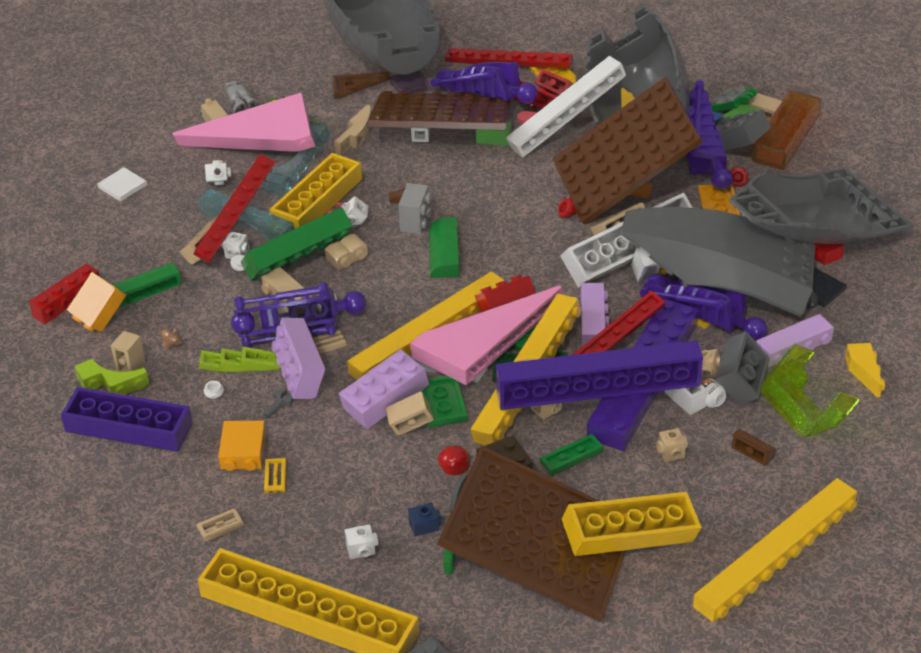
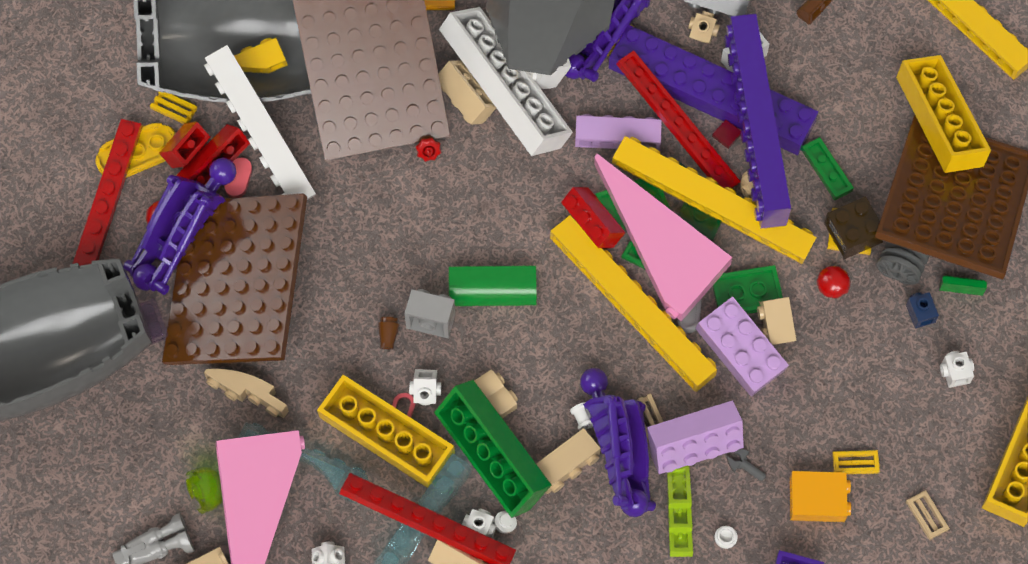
camera: 90 degrees left, 25 degrees up
(351, 83) = (134, 399): reddish brown wing -> none
(671, 445) = (818, 73): tan brick -> none

